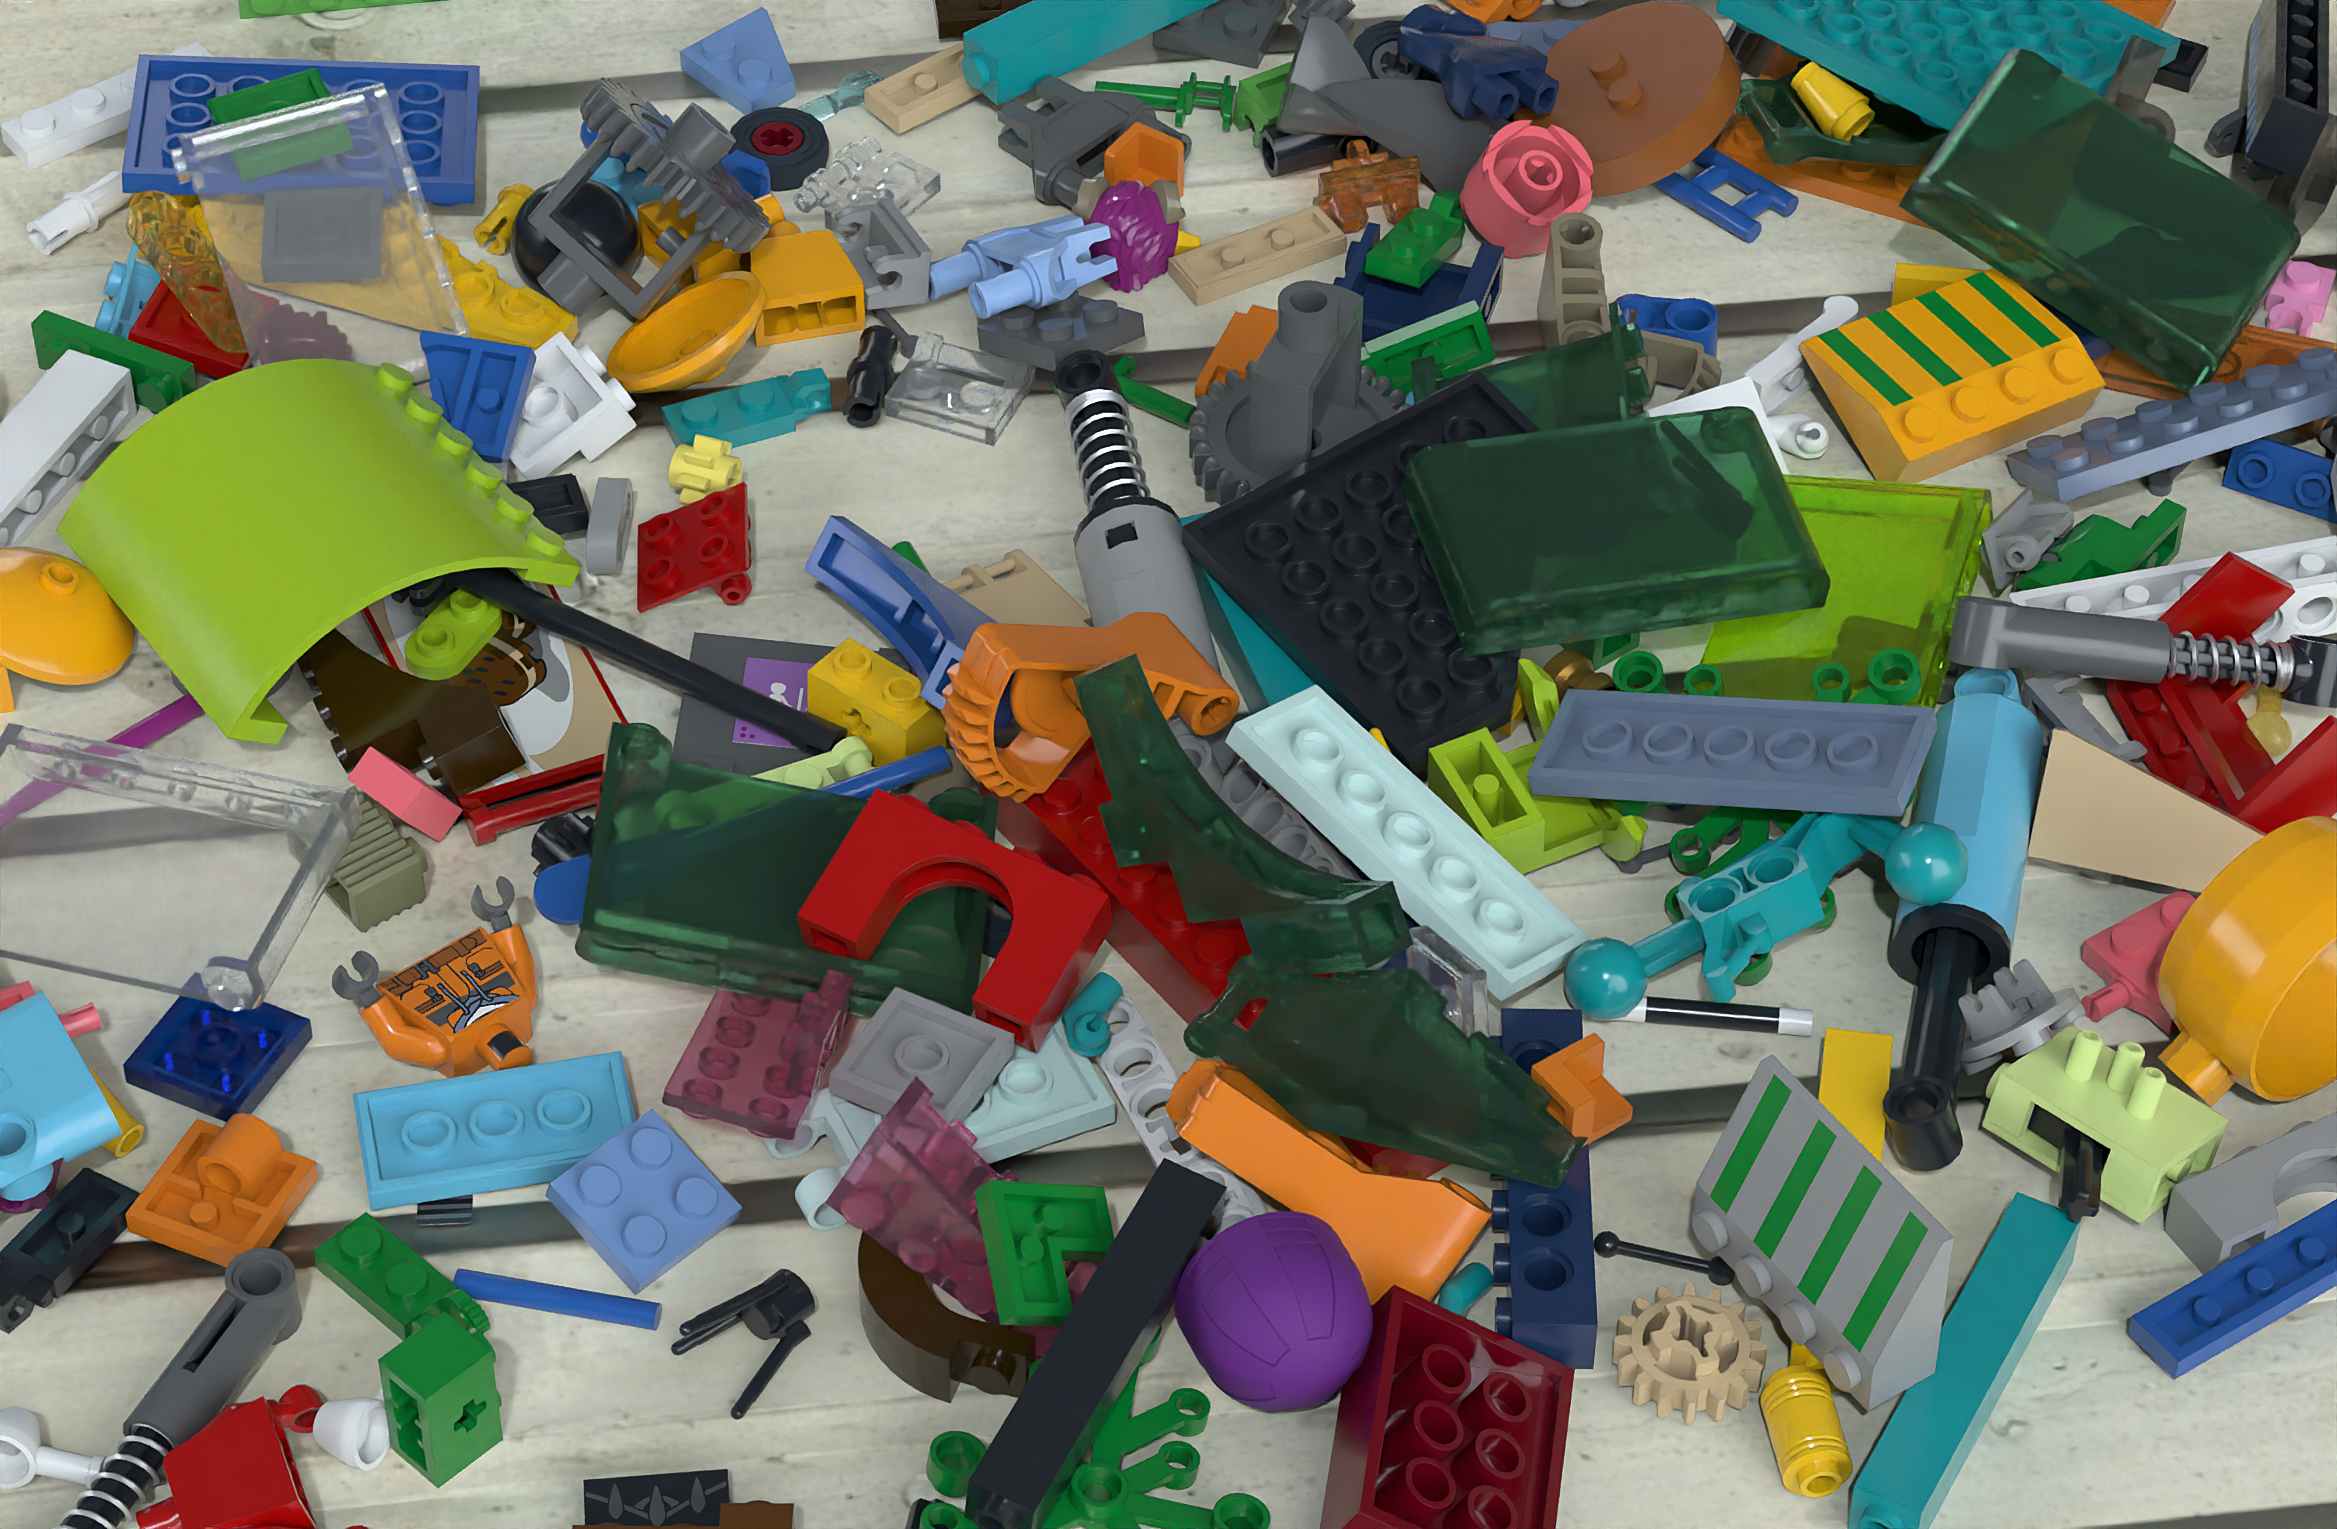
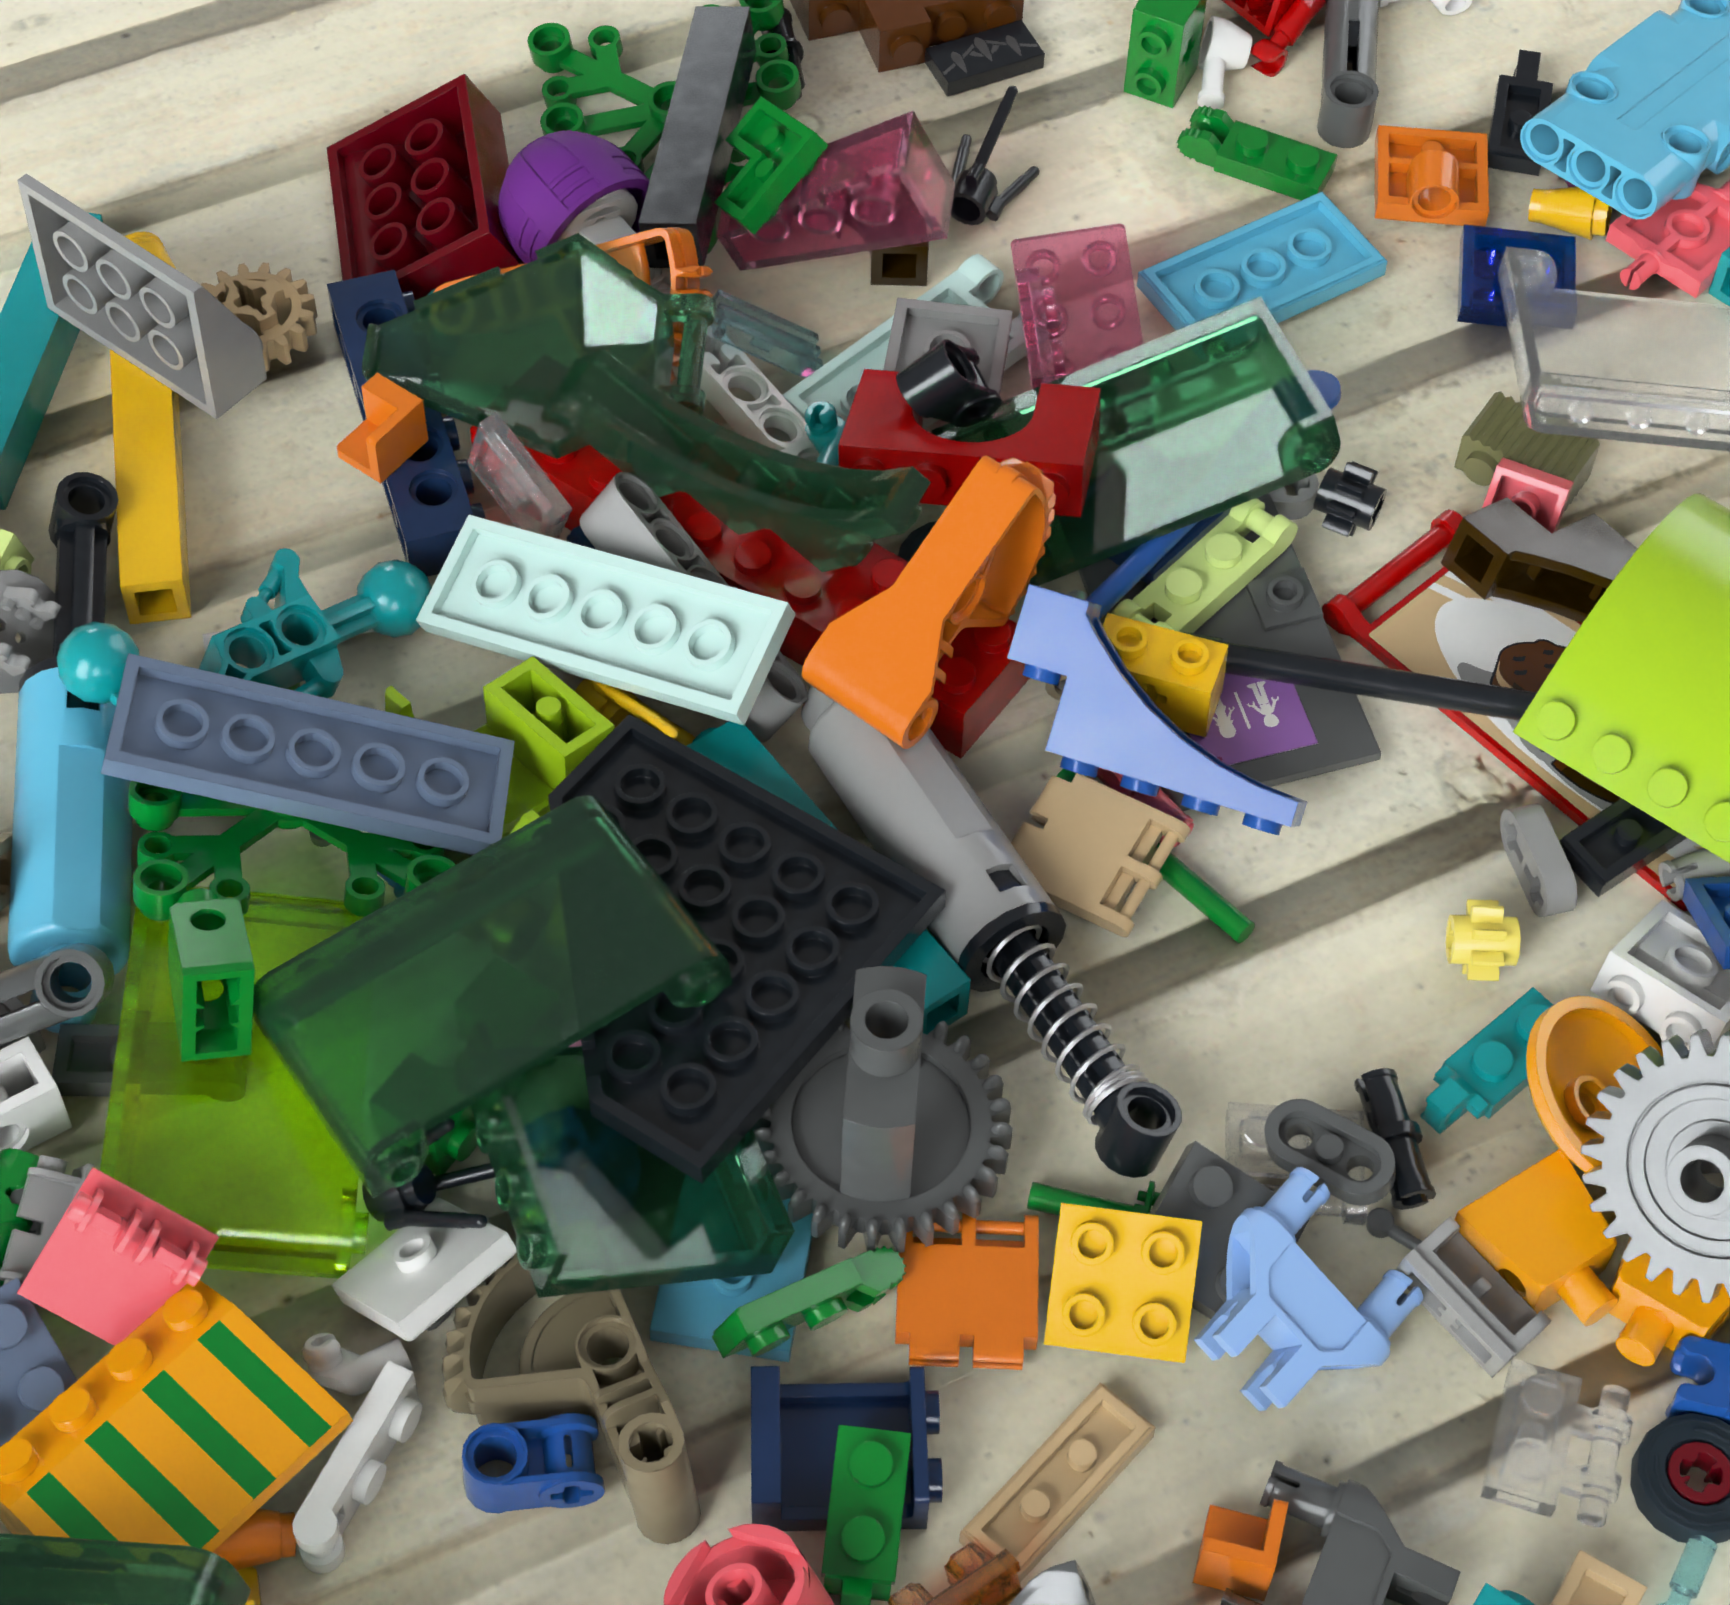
camera: 160 degrees right, 10 degrees up
(458, 1004) = (1364, 337): orange torso -> none
(559, 1299) = (1141, 177): blue bar -> none
(643, 1201) = (1148, 219): medium blue plate -> none
(696, 549) = (1434, 859): red hinge -> none
(942, 341) = (1334, 1150): none -> dark grey plate
(957, 949) = (948, 386): none -> black piece
(1111, 1149) = (765, 335): none -> clear light blue tile
(1140, 224) = (1217, 1439): magenta hair -> none
(1180, 322) = (1123, 1282): none -> yellow hinge
(1608, 1245) = (246, 416): black hinge -> none
(1860, 608) = (210, 944): none -> green torso
(1960, 454) = (115, 1259): none -> coral hinge

